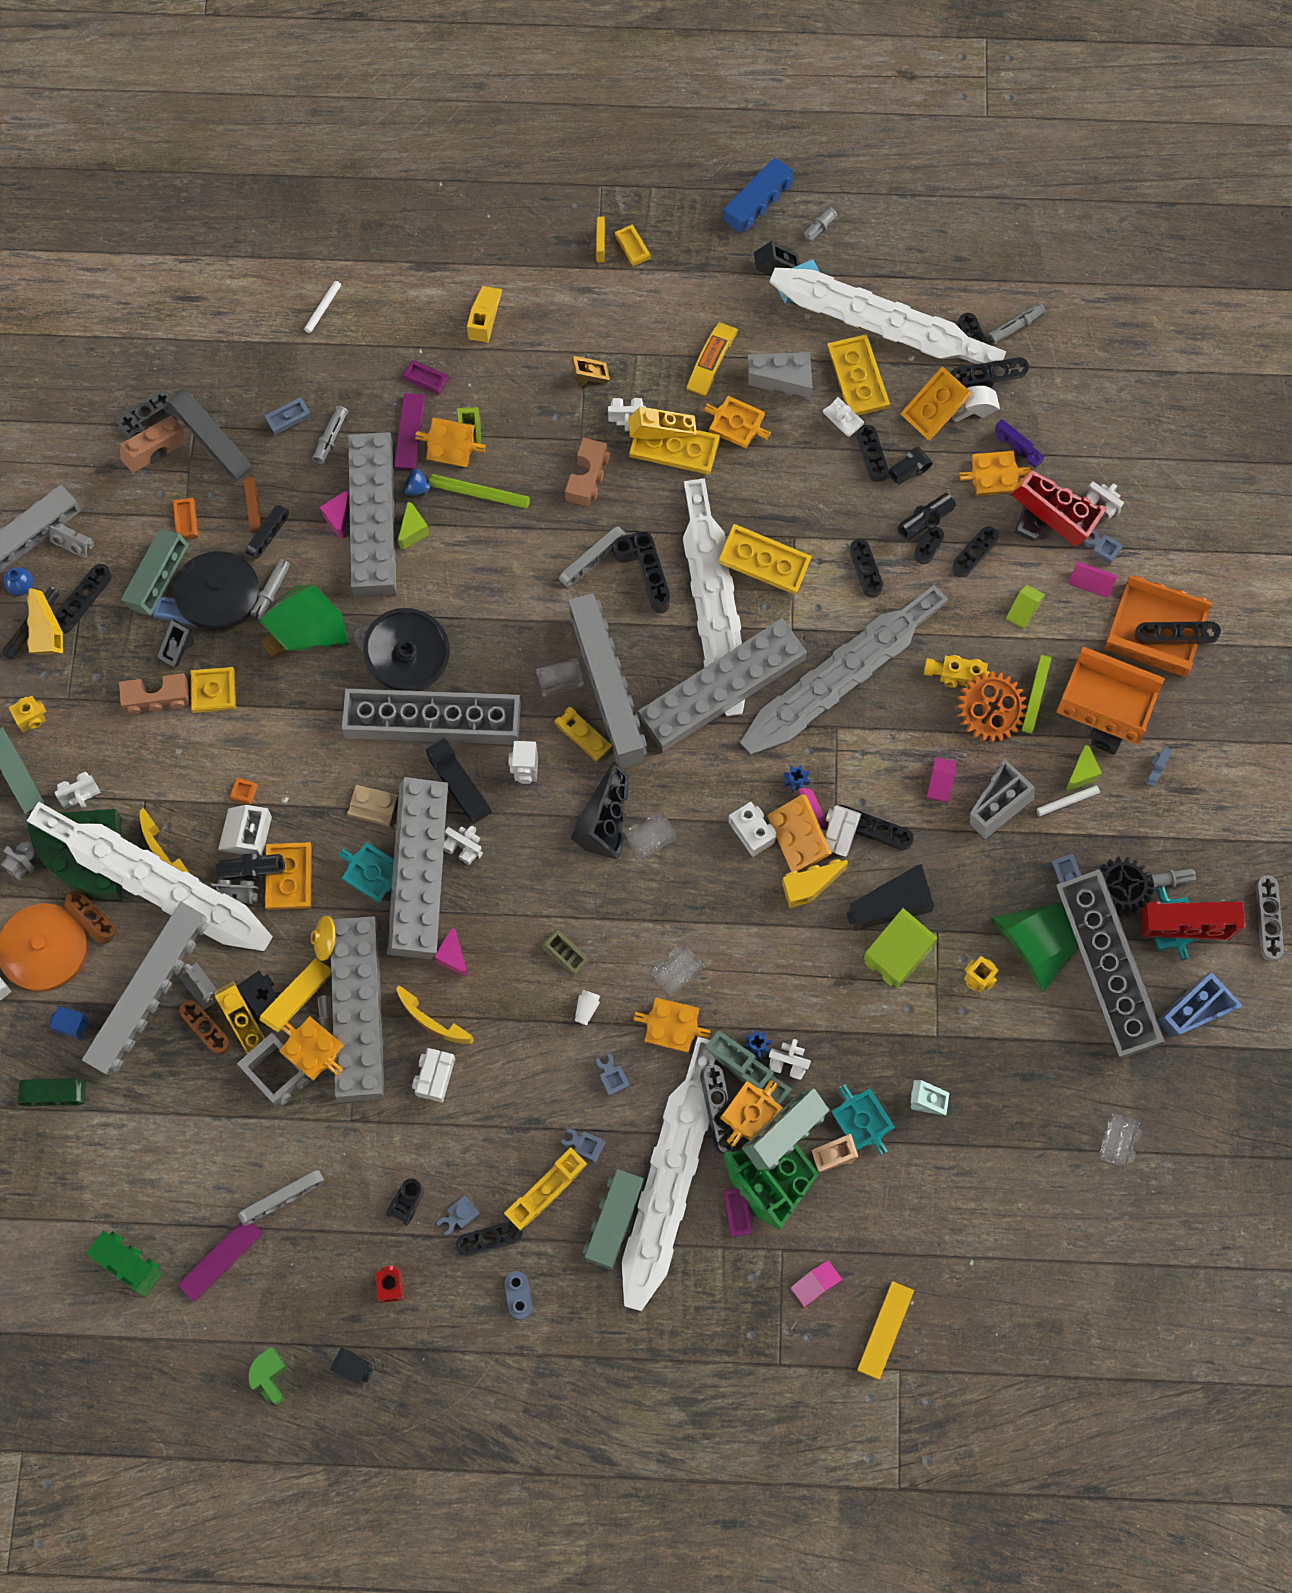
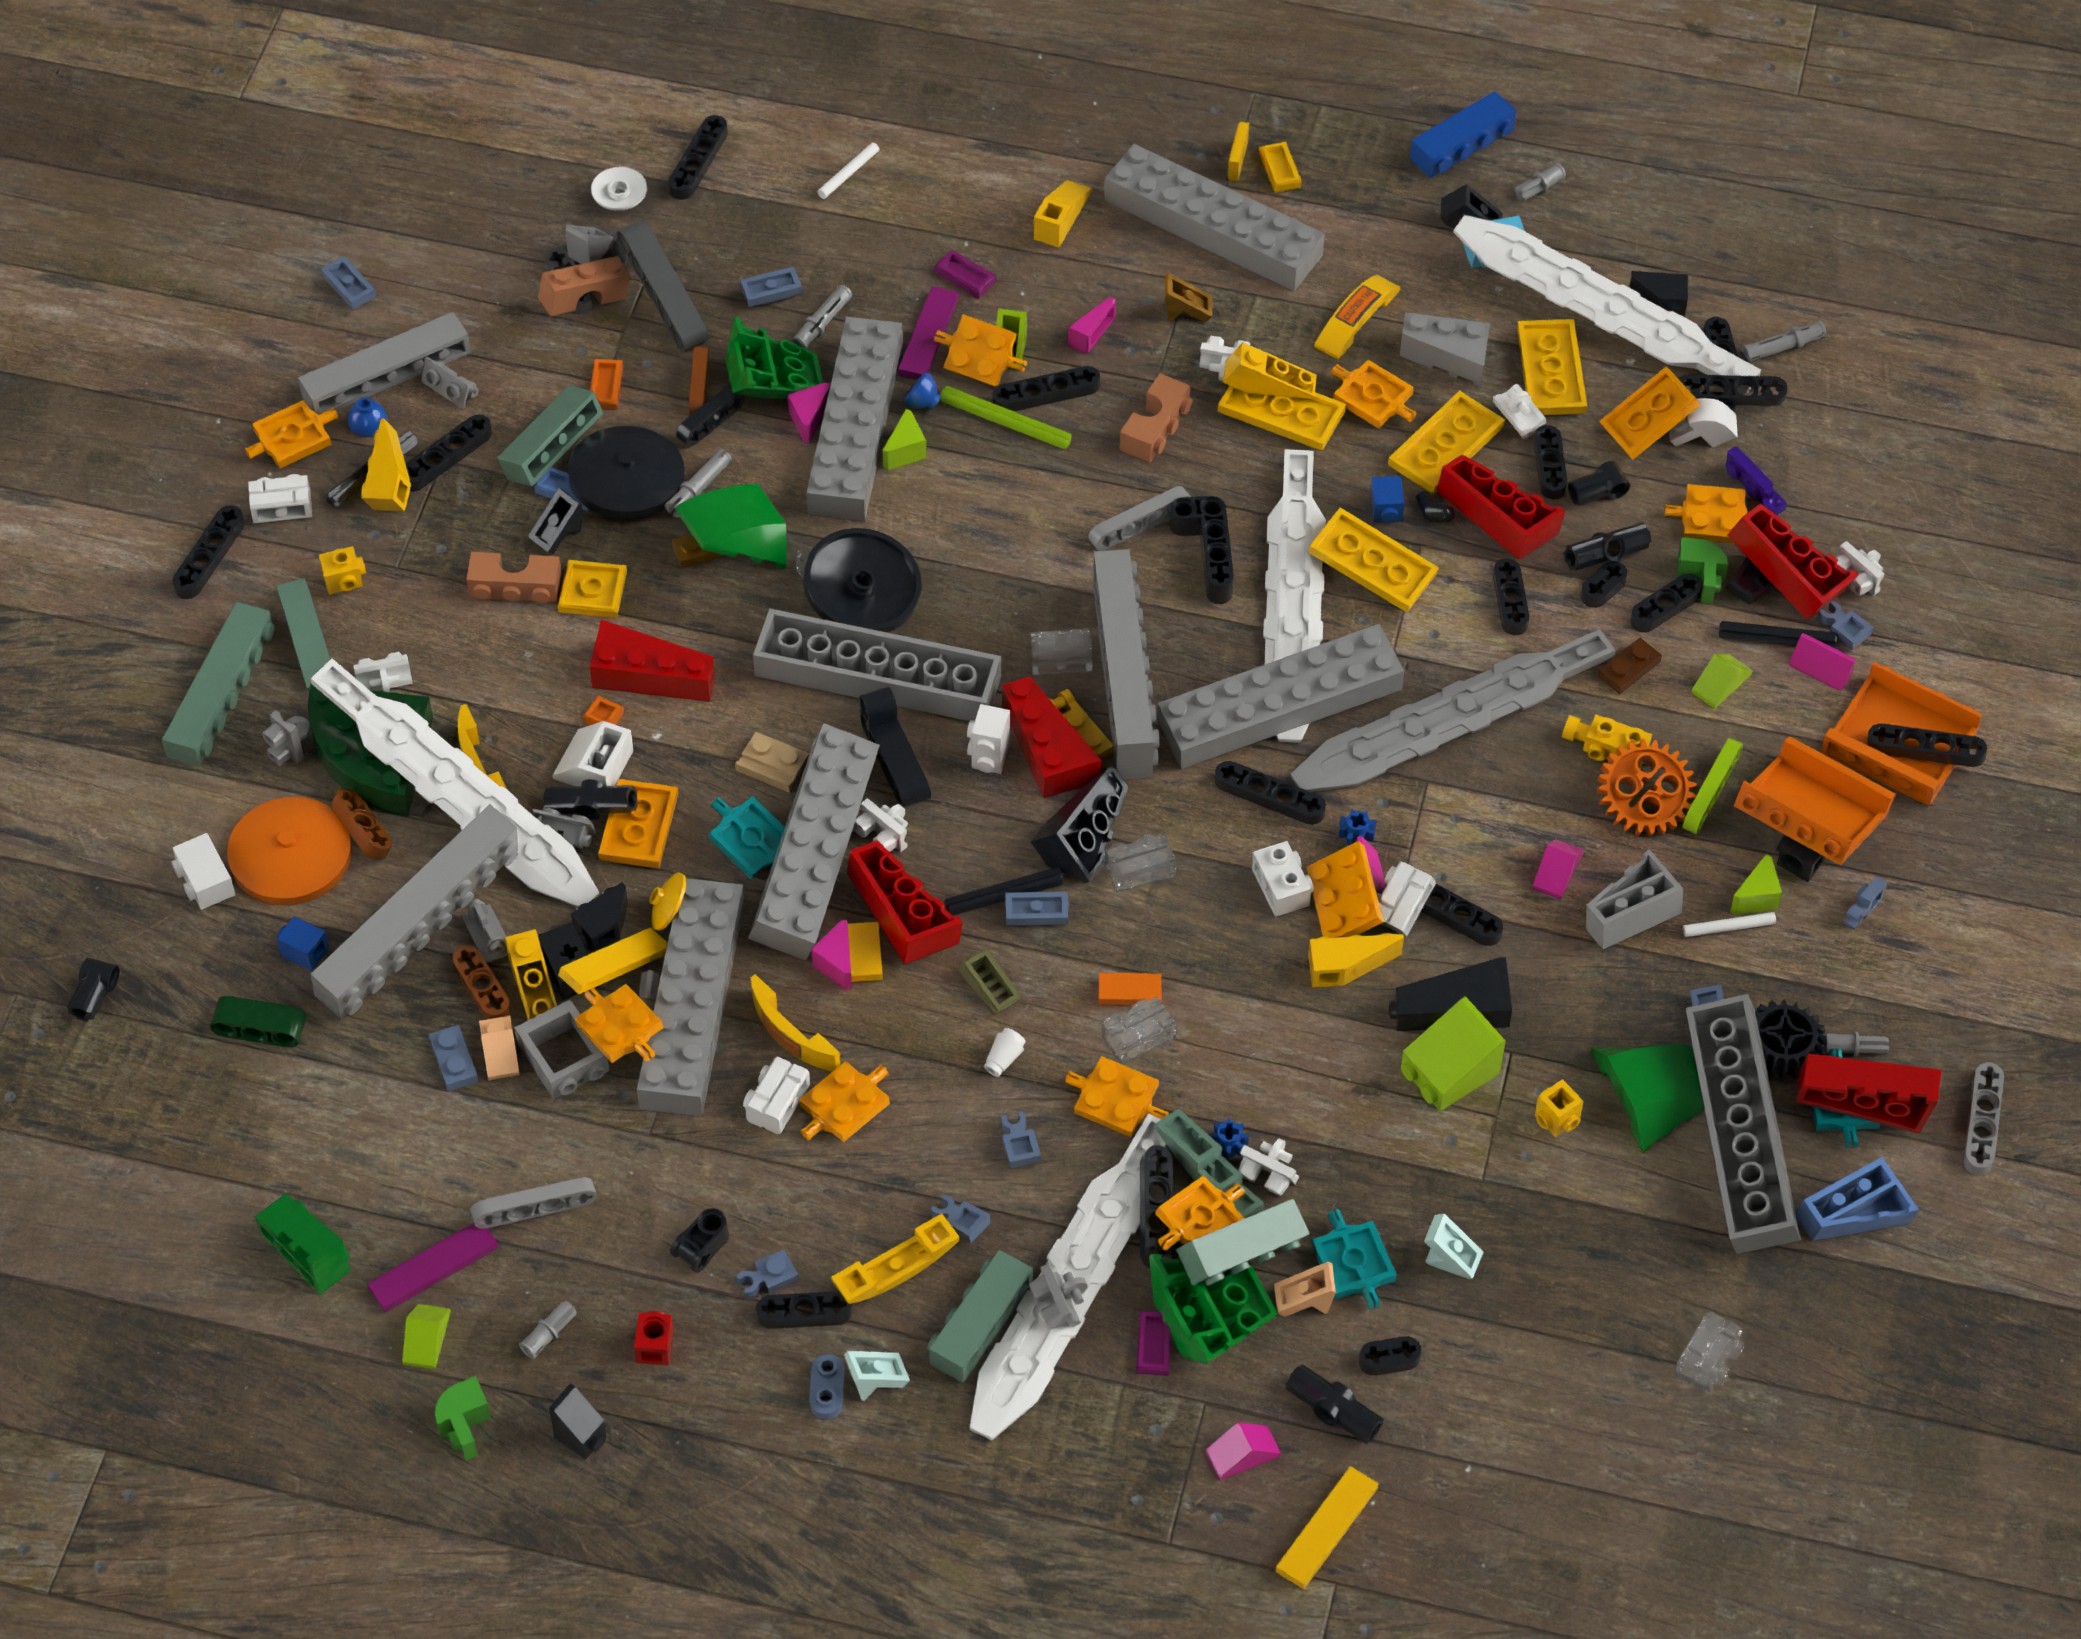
camera: 10 degrees right, 15 degrees down
(147, 407) = (586, 243): none -> light grey slope
(155, 349) = (618, 188): none -> white dish
(198, 1090) = (453, 1058): none -> sand blue plate
(211, 316) = (702, 158): none -> black beam
(227, 1315) = (424, 1335): none -> lime slope
(228, 1075) = (499, 1048): none -> light nougat slope
(267, 747) = (649, 666): none -> red wedge
(280, 959) = (602, 917): none -> black slope
(301, 484) = (768, 367): none -> green wedge
(313, 1292) = (547, 1329): none -> light grey axle
(471, 945) = (865, 951): none -> yellow tile
(482, 1068) = (844, 1101): none -> light orange plate
(493, 910) = (905, 910): none -> red wedge
(505, 465) = (1047, 392): none -> black beam
(524, 407) = (1089, 328): none -> dark pink slope
(551, 1279) = (876, 1370): none -> light aqua slope
(559, 877) = (996, 893): none -> black axle
(567, 754) = (1048, 741): none -> red wedge
(585, 887) = (1036, 908): none -> sand blue plate
(594, 298) = (1214, 217): none -> light grey brick
(663, 937) = (1128, 988): none -> orange tile
(669, 1196) = (1052, 1285): none -> light grey hips
(728, 763) = (1267, 797): none -> black beam
(764, 507) = (1387, 499): none -> blue brick
(796, 452) = (1454, 430): none -> yellow plate
(798, 509) = (1434, 511): none -> black arm
(844, 499) = (1498, 507): none -> red wedge
(872, 1235) = (1334, 1404): none -> black piece
(904, 1193) = (1390, 1355): none -> black beam
(924, 299) = (1662, 289): none -> black slope
(959, 607) = (1629, 665): none -> reddish brown plate
(997, 515) = (1705, 561): none -> bright green brick
(1056, 563) = (1771, 634): none -> black axle

